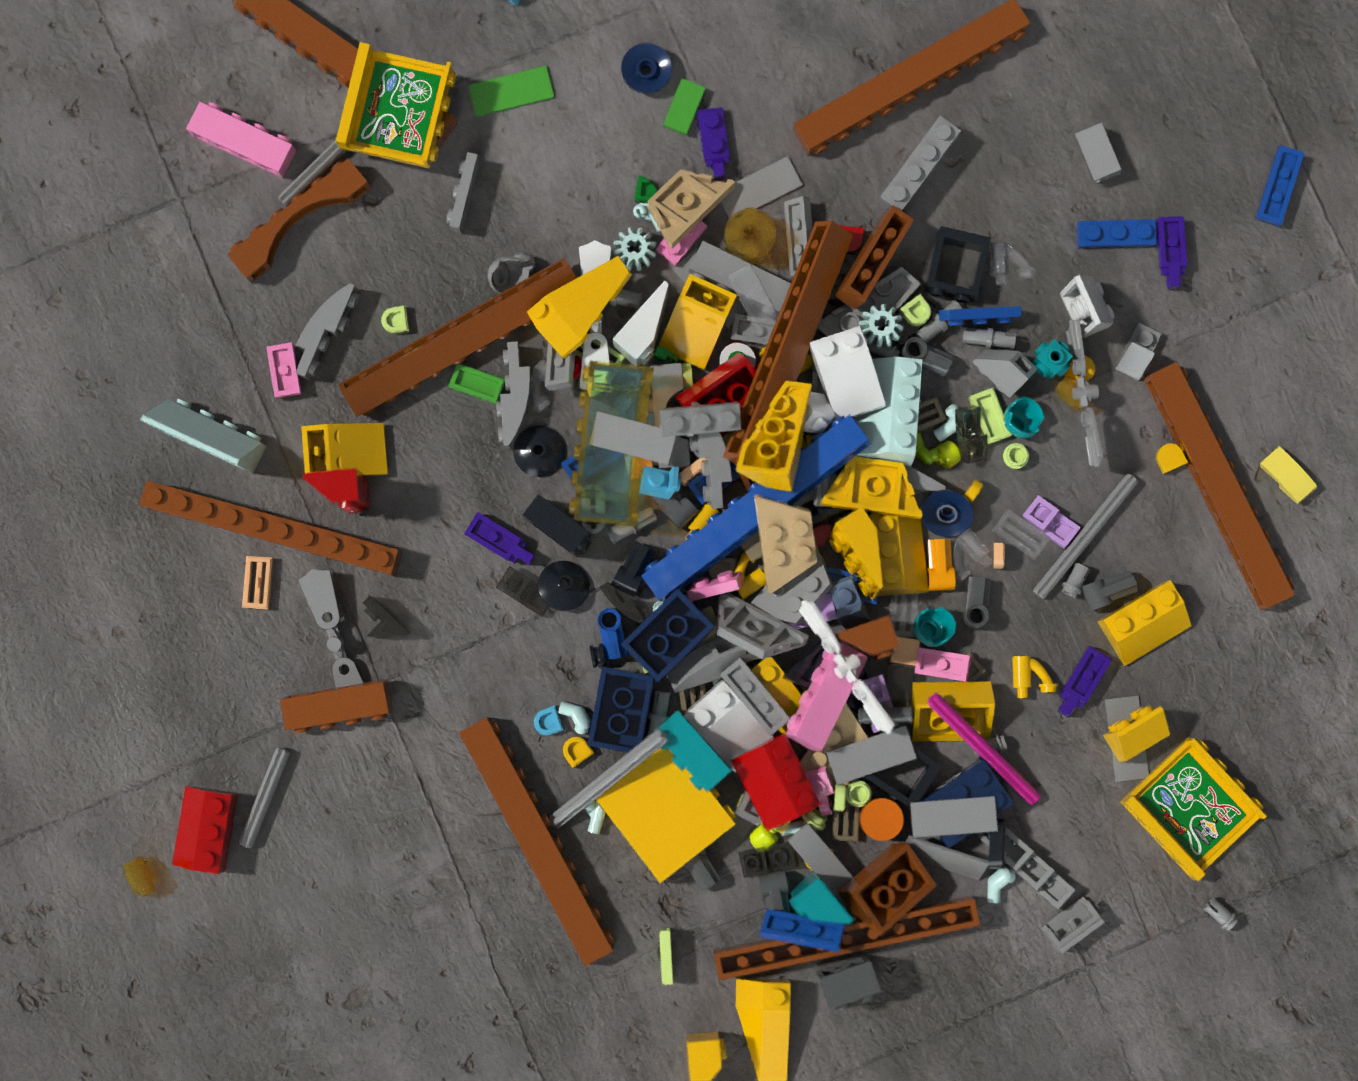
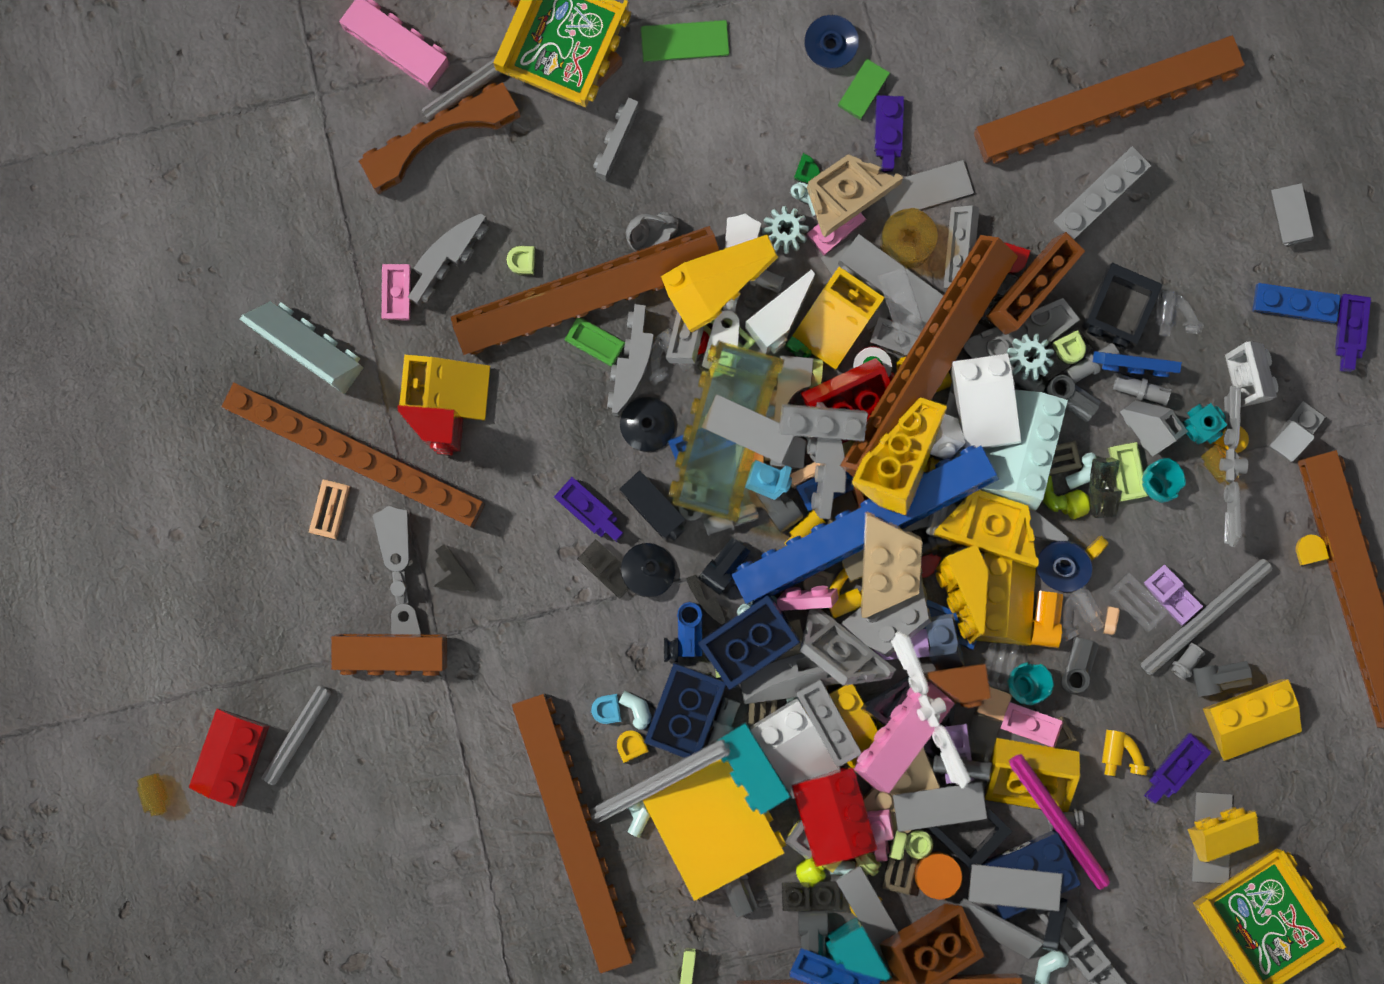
camera: 15 degrees right, 0 degrees up
(1015, 456) = (1148, 518): yellowish green plate -> none

